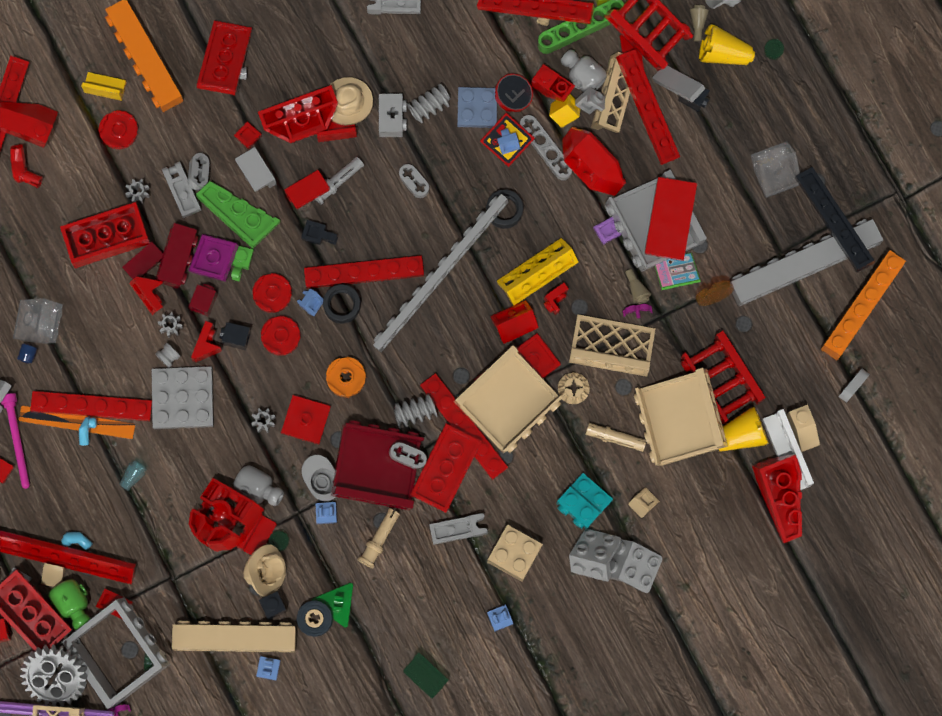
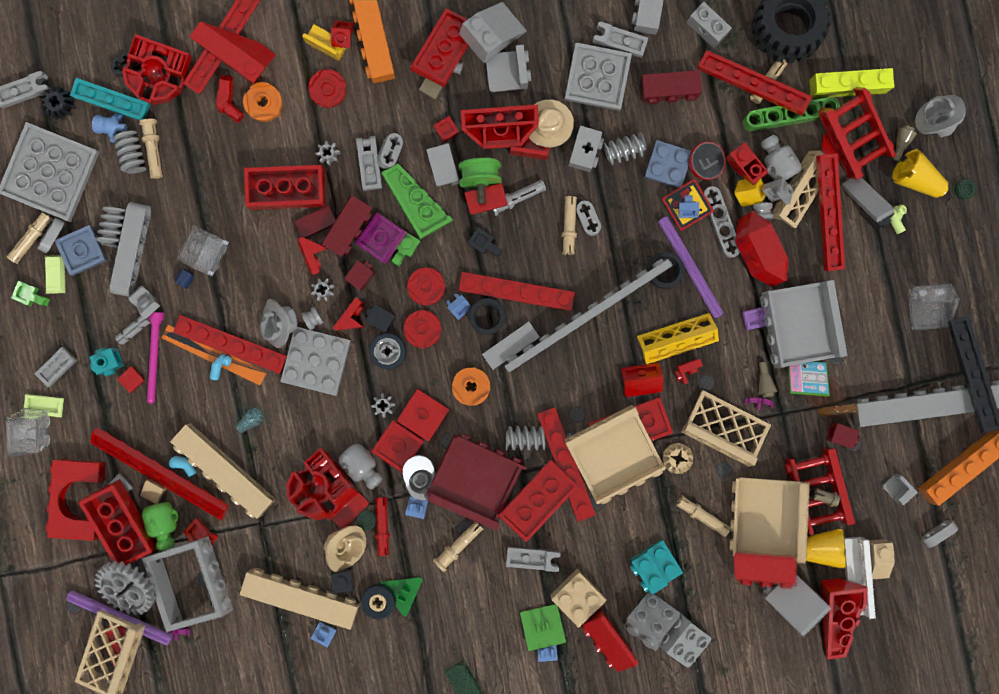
camera: 20 degrees right, 10 degrees up
(68, 166) = (270, 110): none -> orange plate
(119, 73) = (341, 34): none -> red bracket
(119, 532) = (222, 470): none -> tan brick
(133, 368) = (277, 323): none -> light grey hat
(221, 101) = (430, 89): none -> dark tan tile
(245, 374) = (392, 360): none -> wheel
(265, 29) = (491, 31): none -> light grey slope
(288, 456) = (397, 445): none -> red plate
(293, 62) = (508, 70): none -> light grey bracket
(293, 167) = (479, 174): none -> bright green wheel
(298, 547) = (382, 526): none -> red pin
(373, 325) = (510, 345): none -> light grey tile
(382, 43) = (598, 76): none -> light grey plate
(399, 200) = (569, 225): none -> tan pin
(409, 451) = (509, 475): light grey beam -> none
(456, 33) = (671, 86): none -> dark red brick
(488, 595) = (542, 627): none -> bright green piece
(529, 199) = (690, 267): none -> medium lavender axle
(558, 586) = (609, 641): none -> red slope
(583, 122) = (764, 210): none -> light grey wheel
(643, 502) = (710, 583): tan slope -> none
(671, 218) = (820, 328): red tile -> none
(689, 465) = (765, 570): none -> red slope
(715, 95) = (896, 219): none -> yellowish green arm
(729, 318) = (843, 435): none -> dark red brick
(729, 380) = (826, 497): none -> dark tan pin
(729, 491) = (798, 605): none -> light grey slope
(800, 353) = (899, 489): none -> light grey panel

